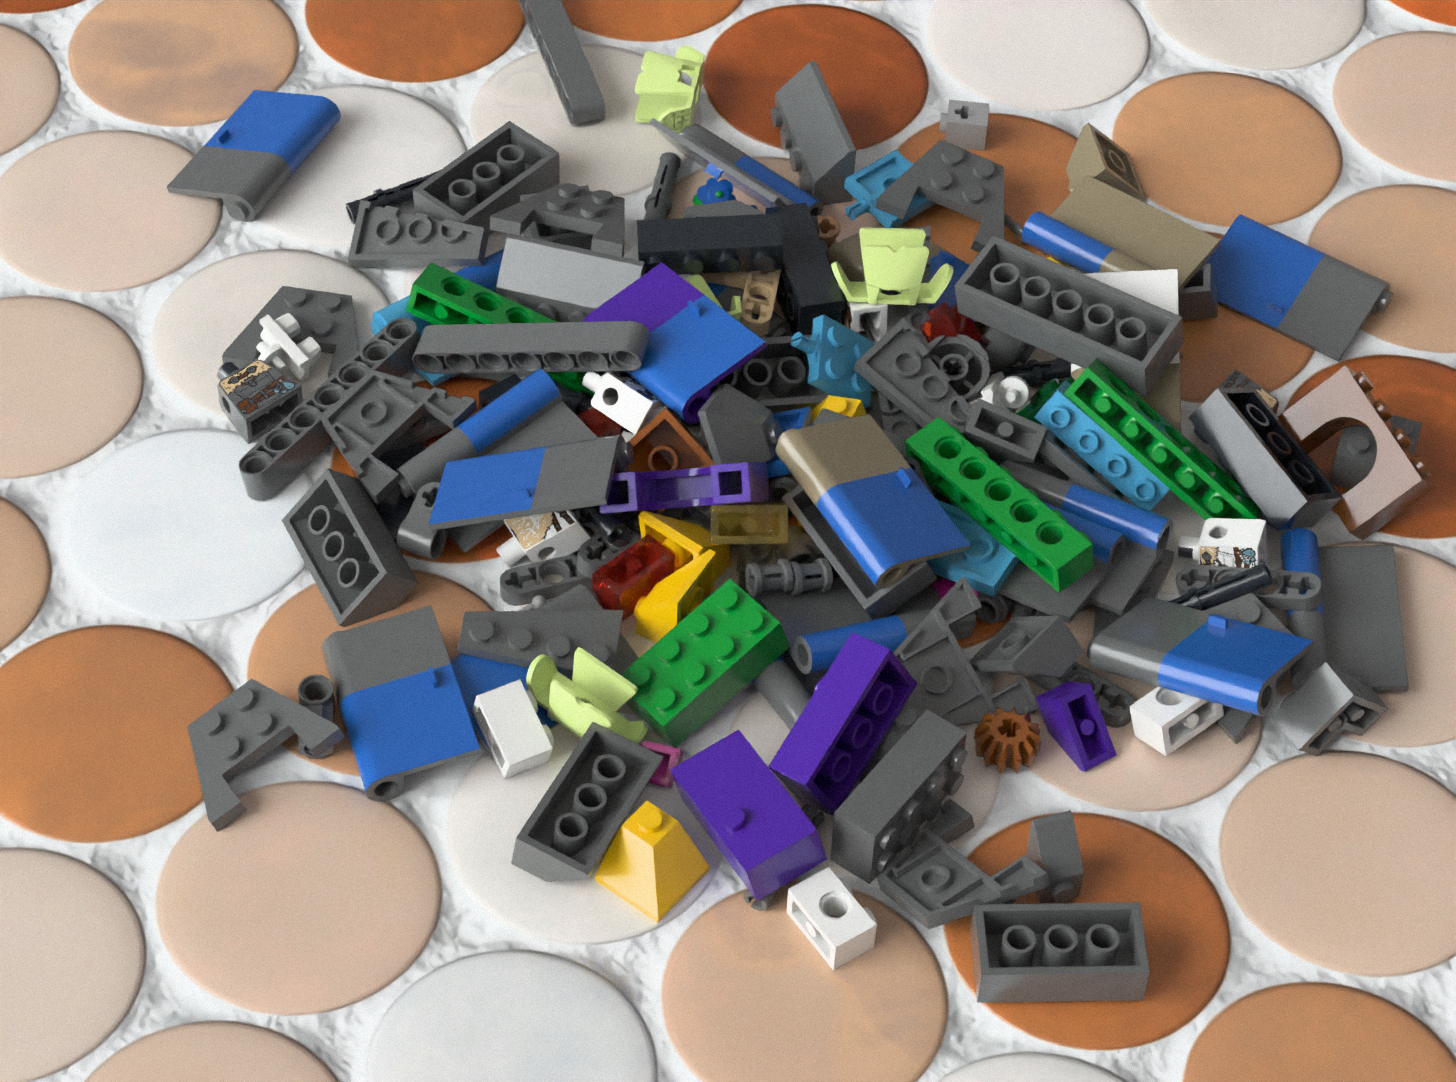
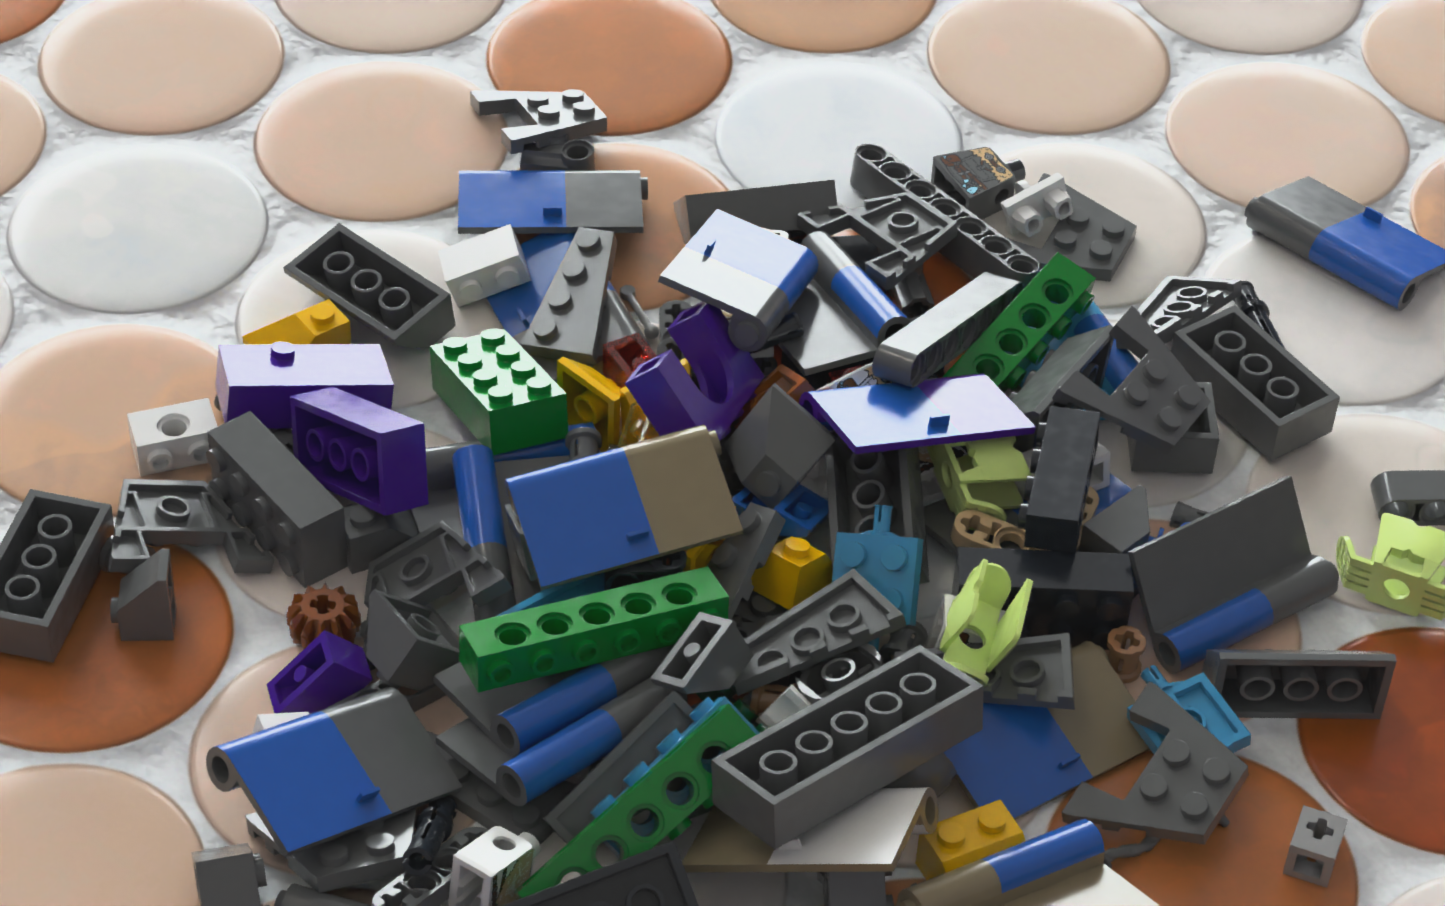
camera: 105 degrees right, 5 degrees down
(592, 683) = (480, 303): yellowish green piece -> none
(671, 758) = (415, 374): dark pink slope -> none

